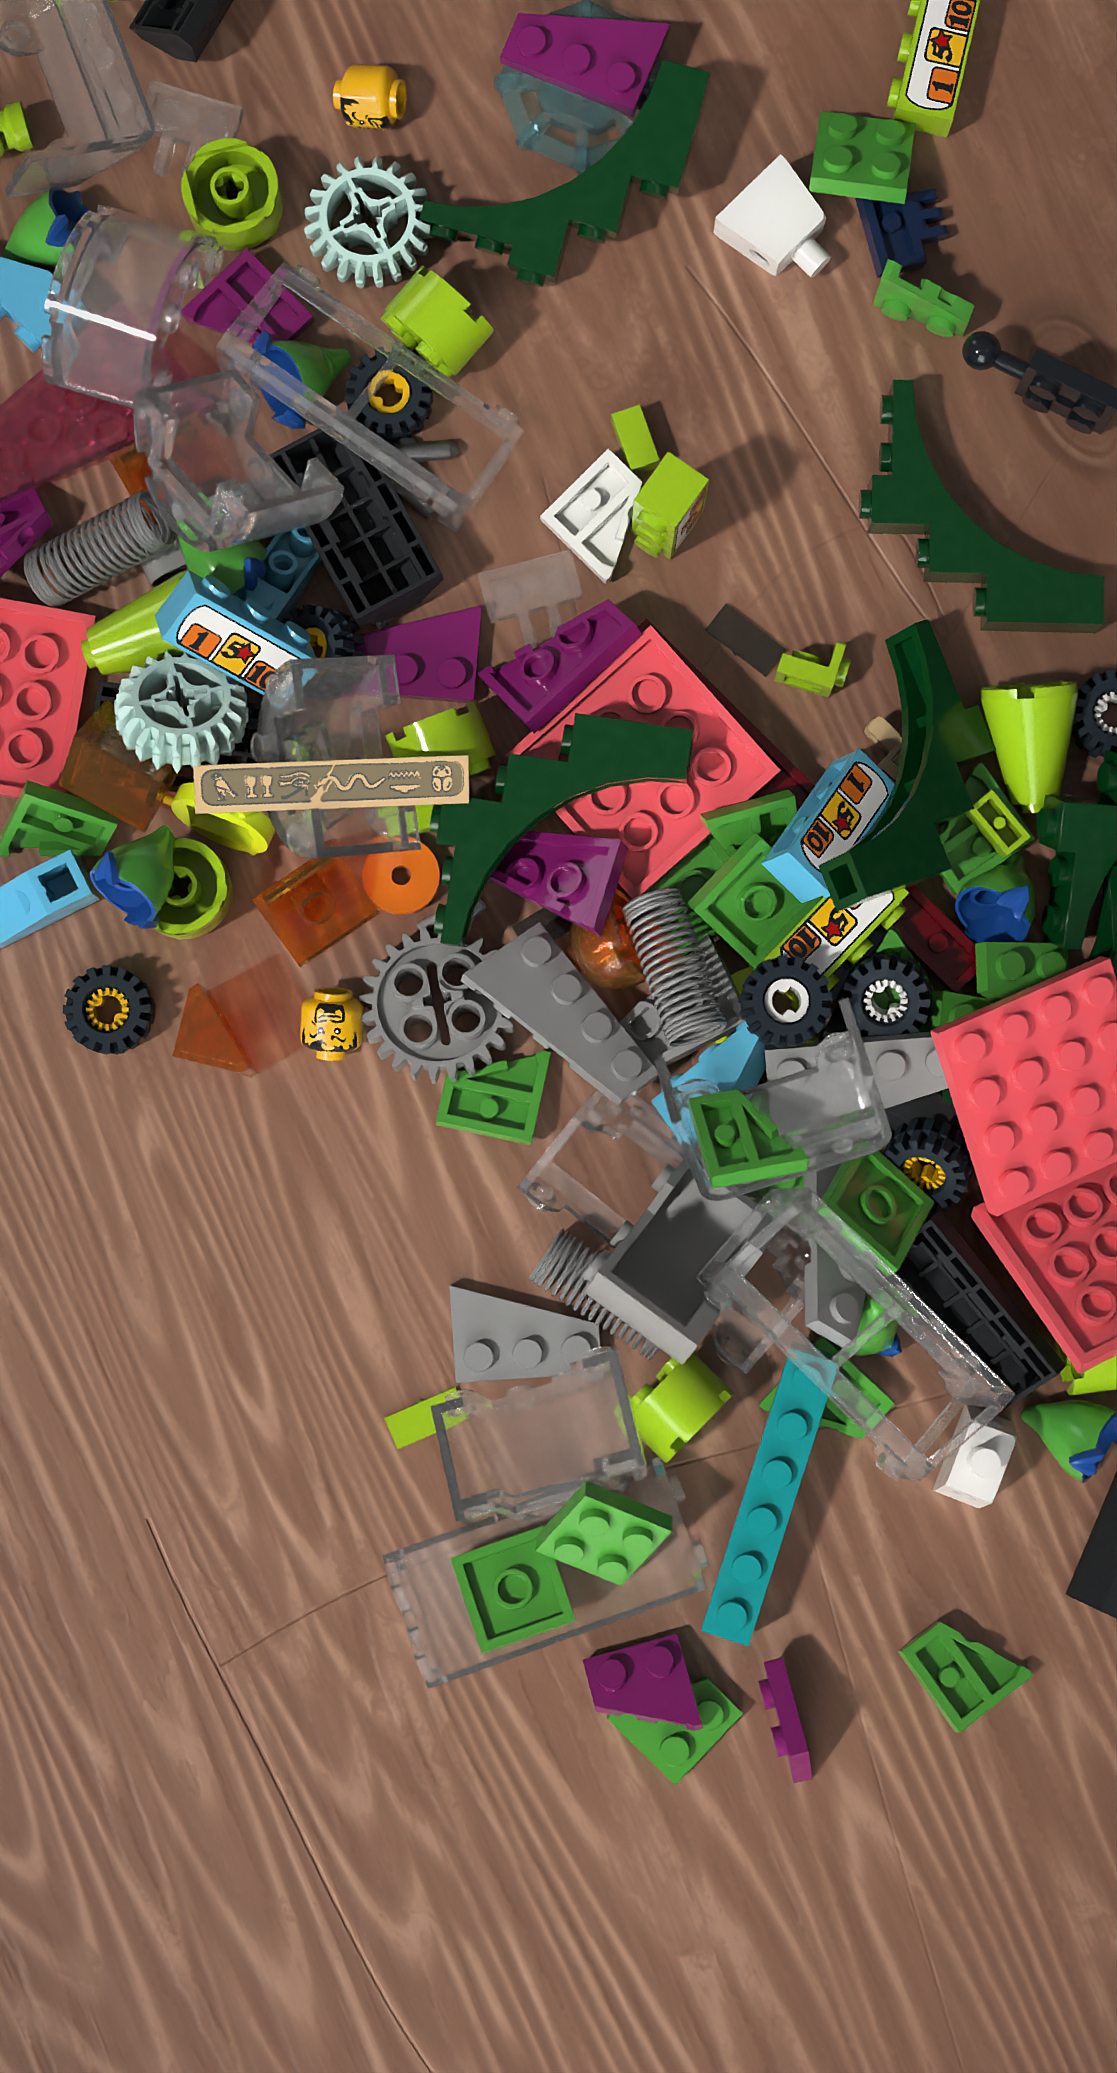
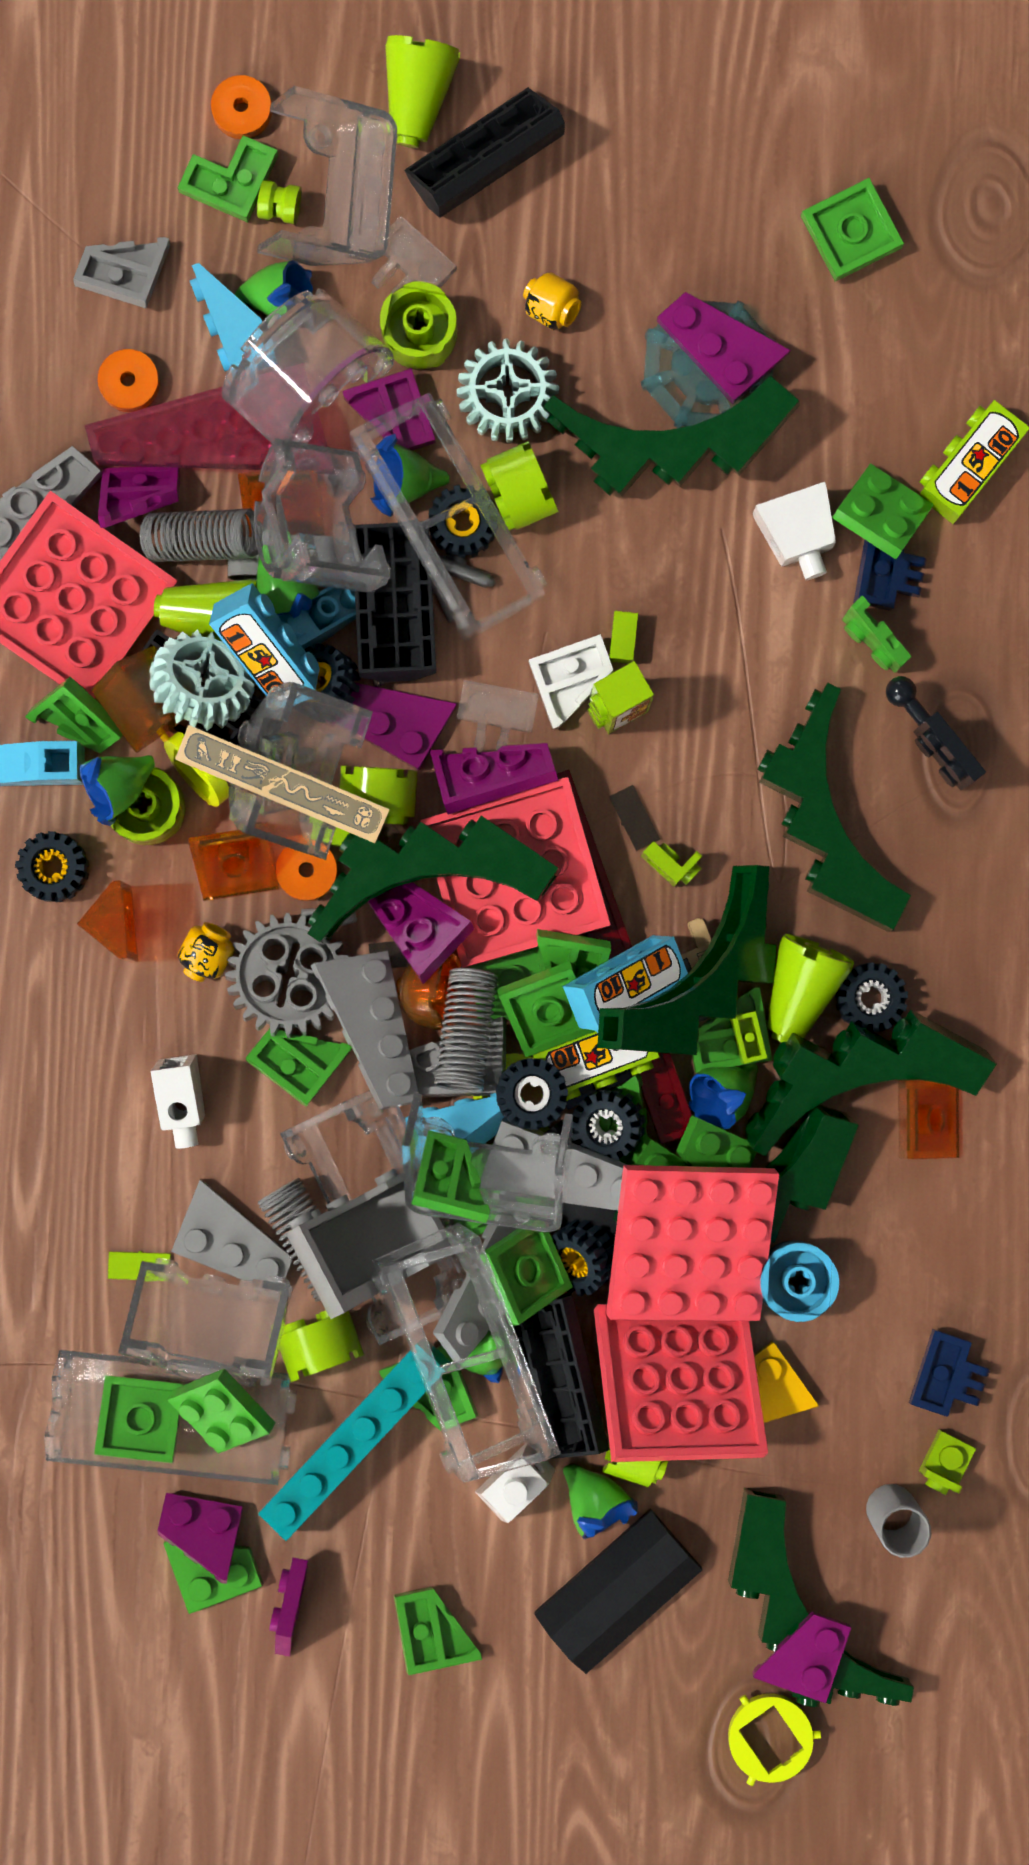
camera: 20 degrees right, 0 degrees up
(372, 1185) = (179, 1081): none -> white torso

